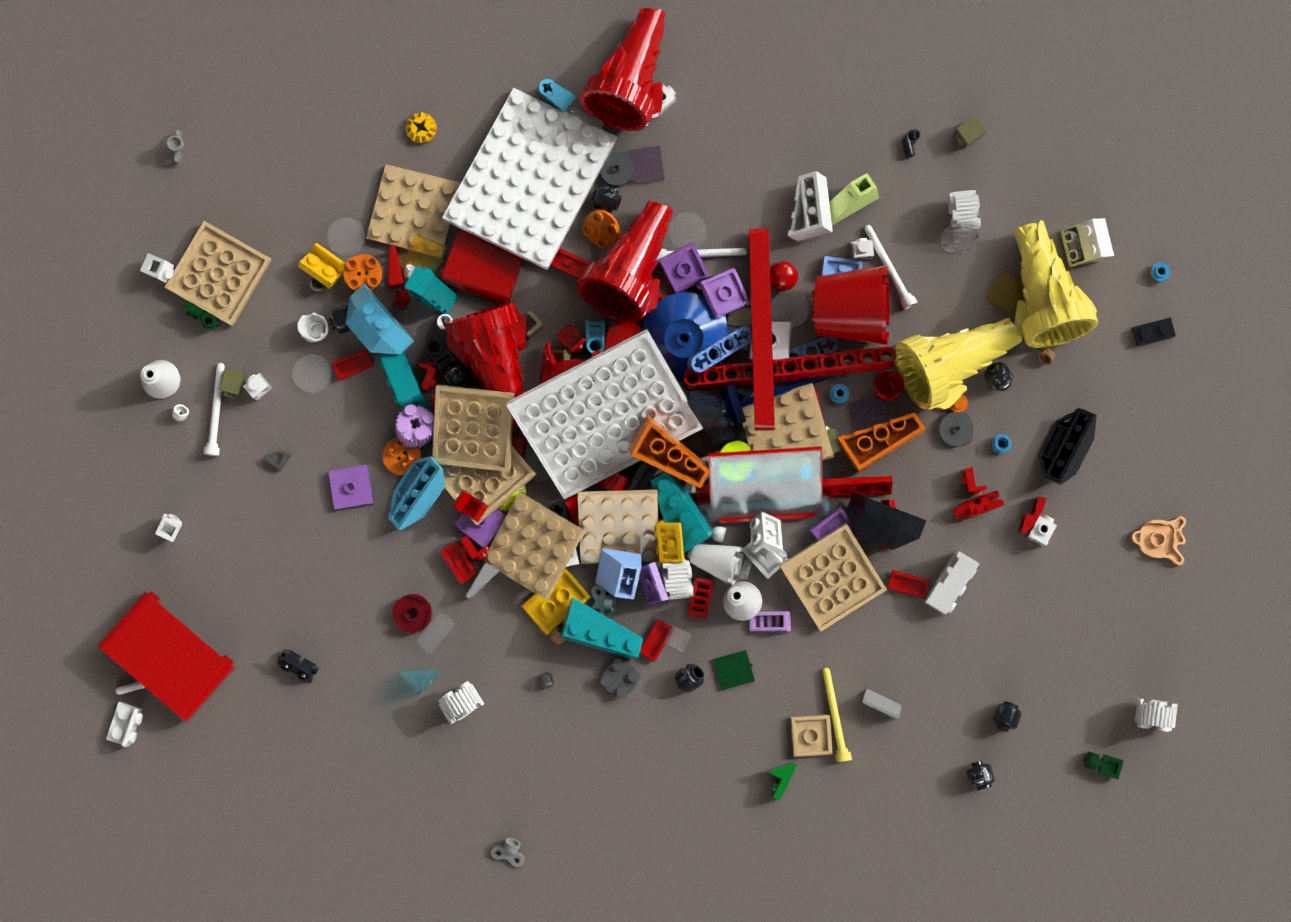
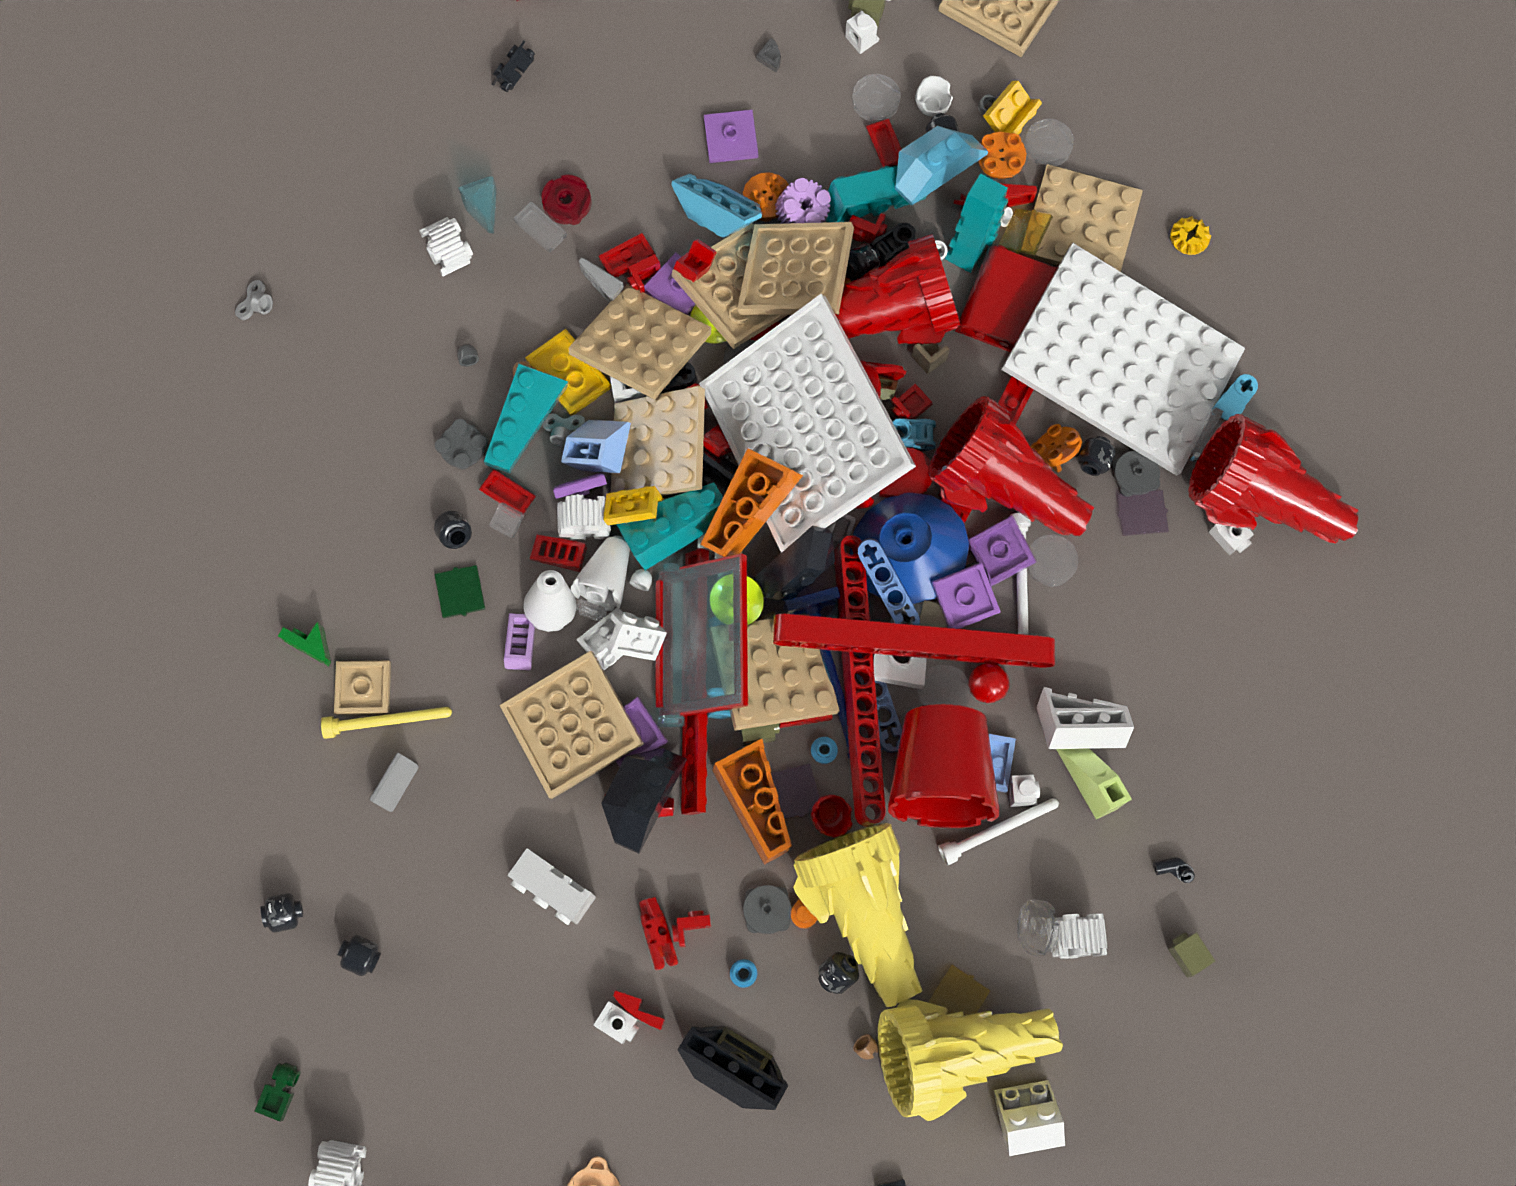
camera: 90 degrees right, 10 degrees down
(908, 584) = (555, 830): red tile -> none

